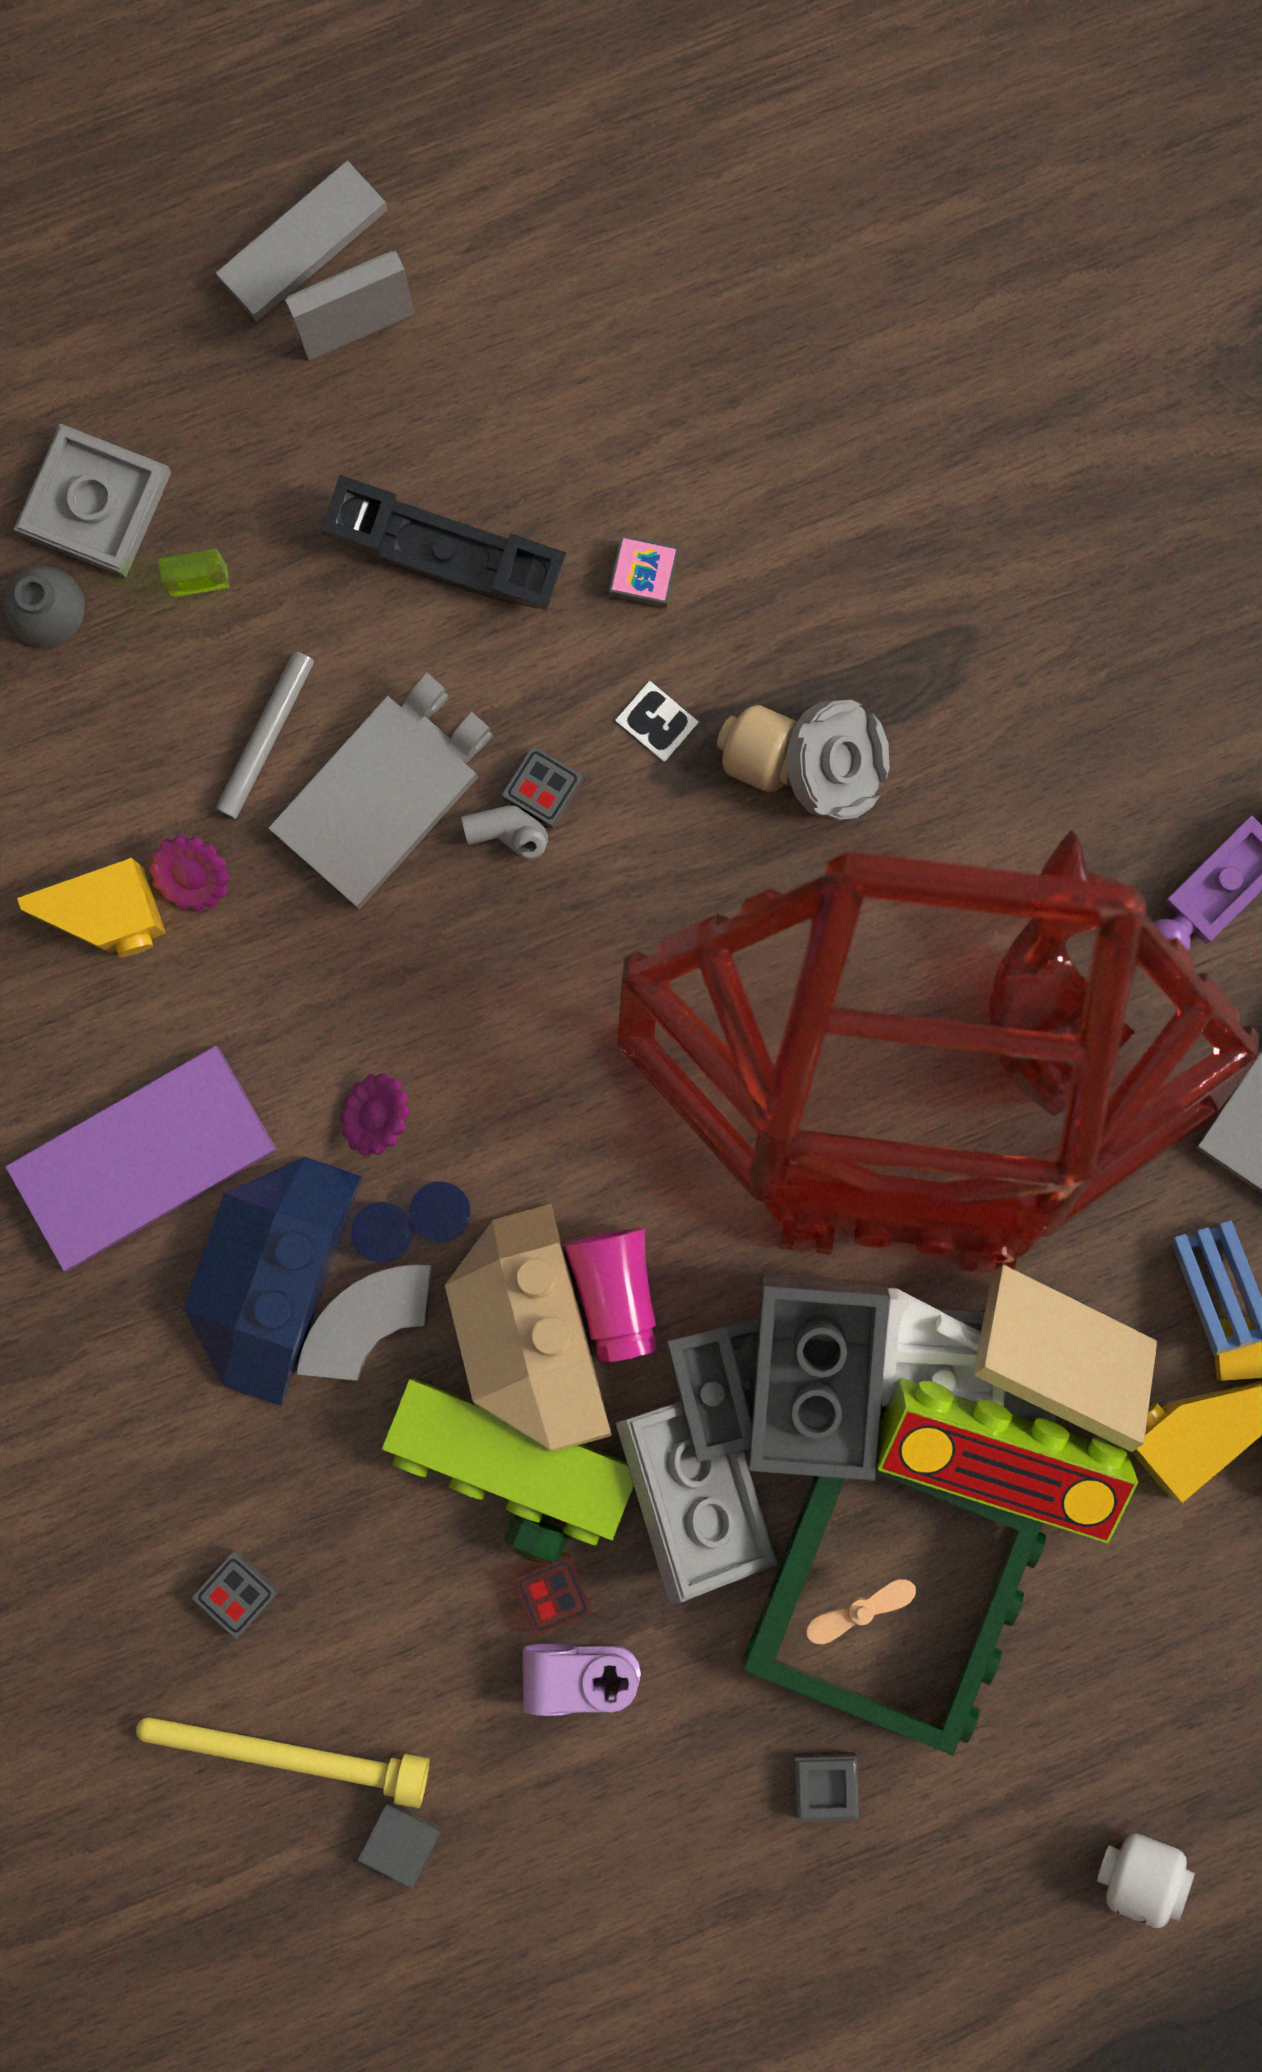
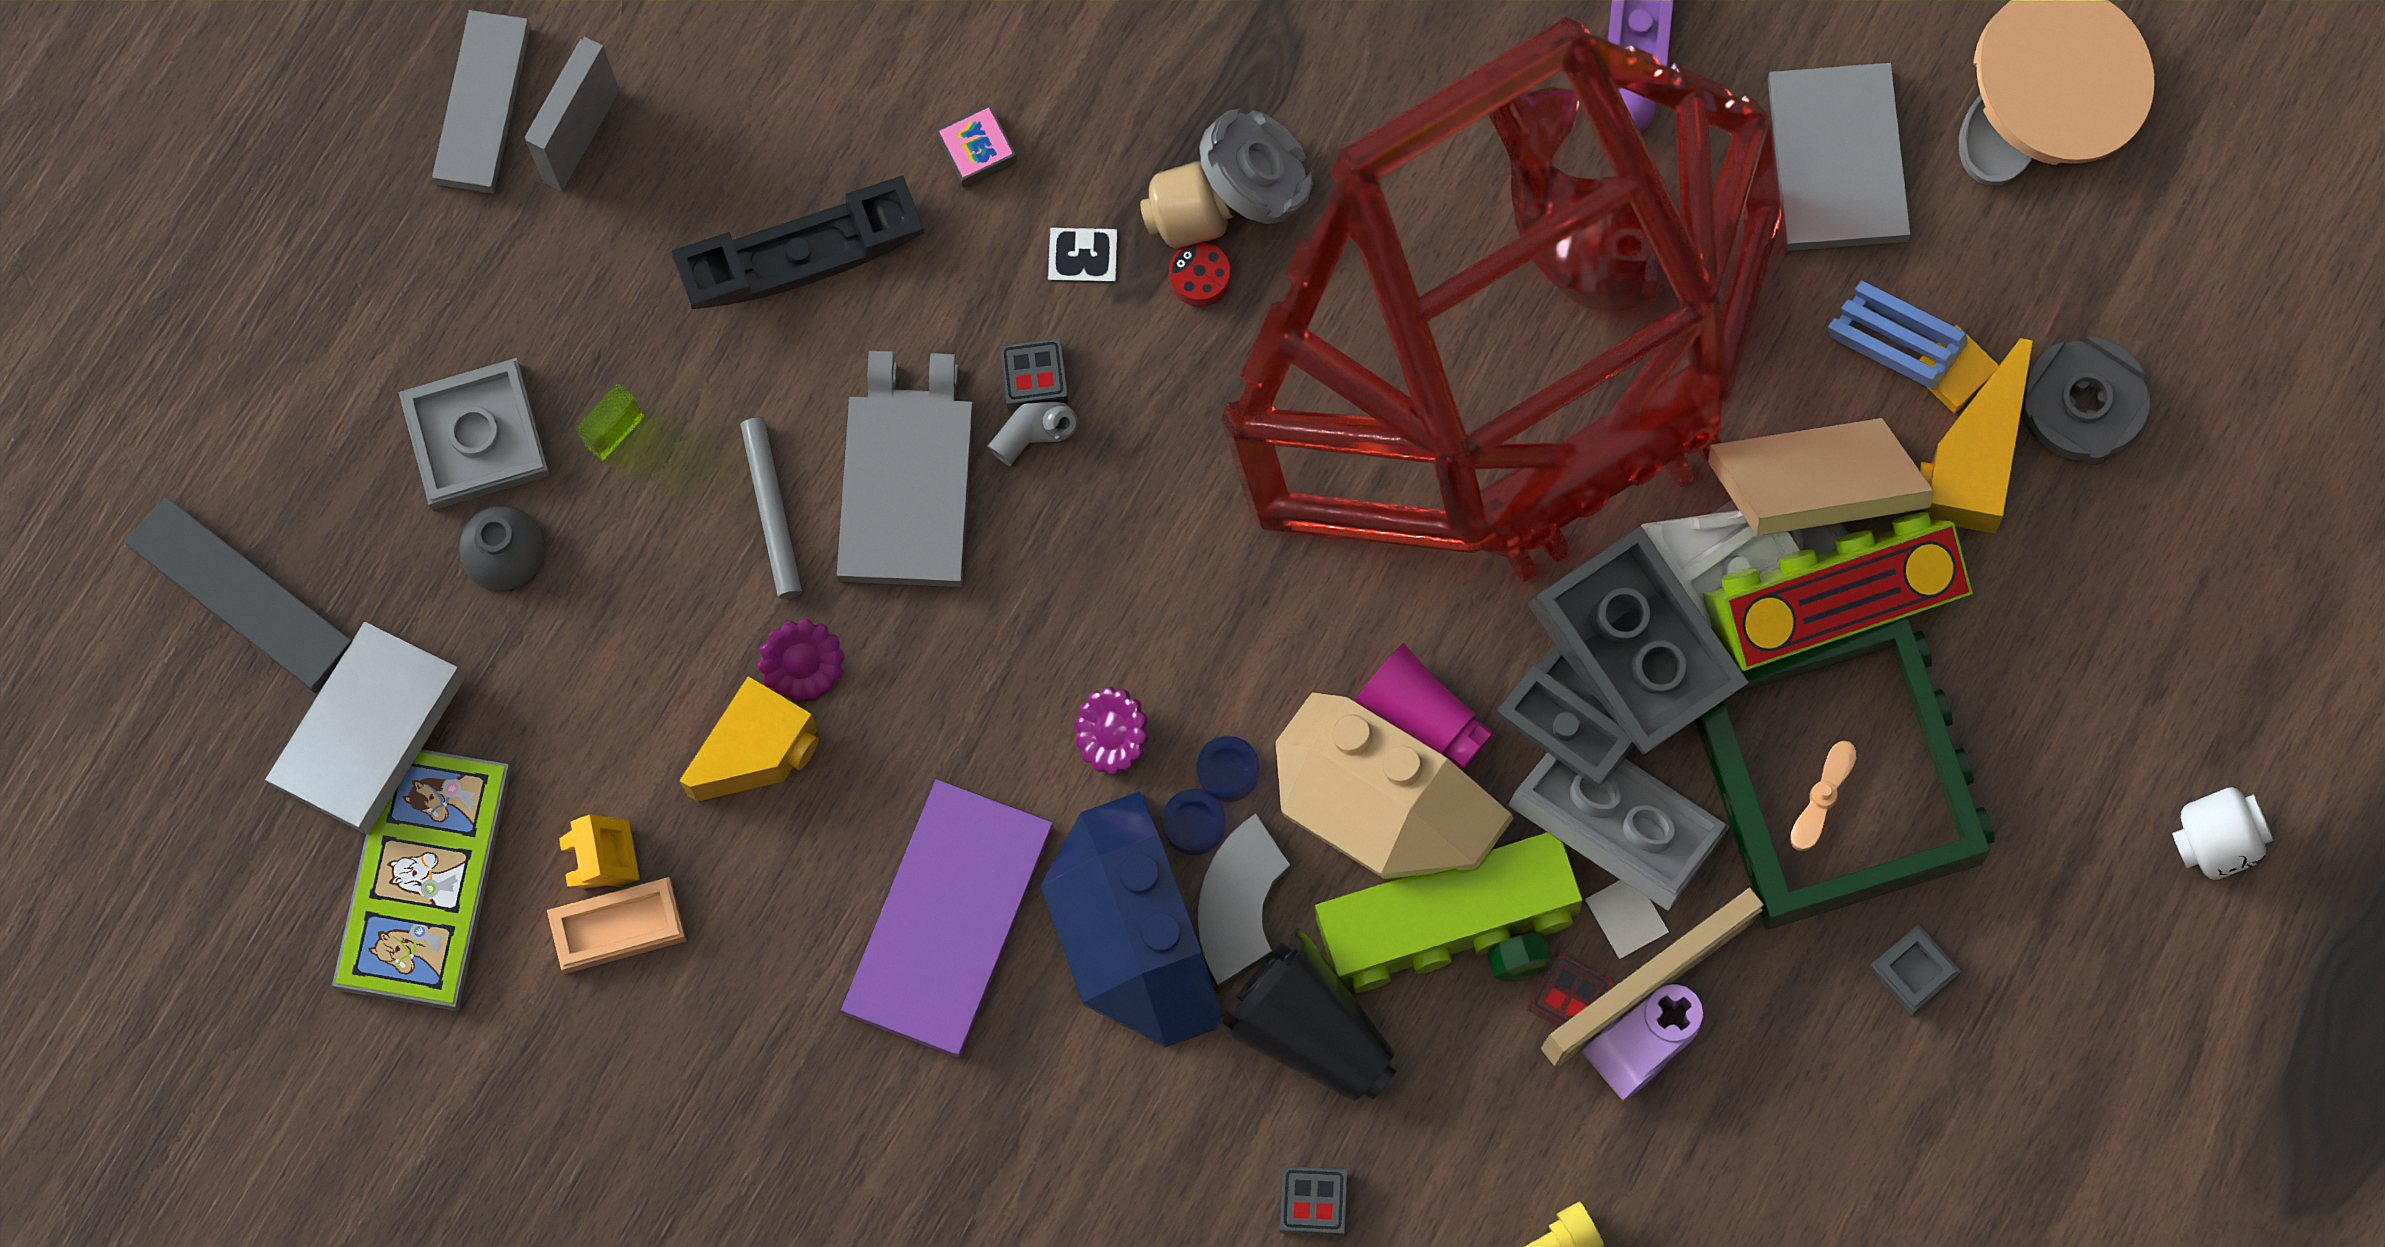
camera: 35 degrees left, 10 degrees down
(335, 1461) = (1310, 1022): none -> black cone
(620, 1639) = (1656, 973): none -> tan tile
(638, 1569) = (1626, 917): none -> white sticker
(730, 808) = (1199, 274): none -> red tile

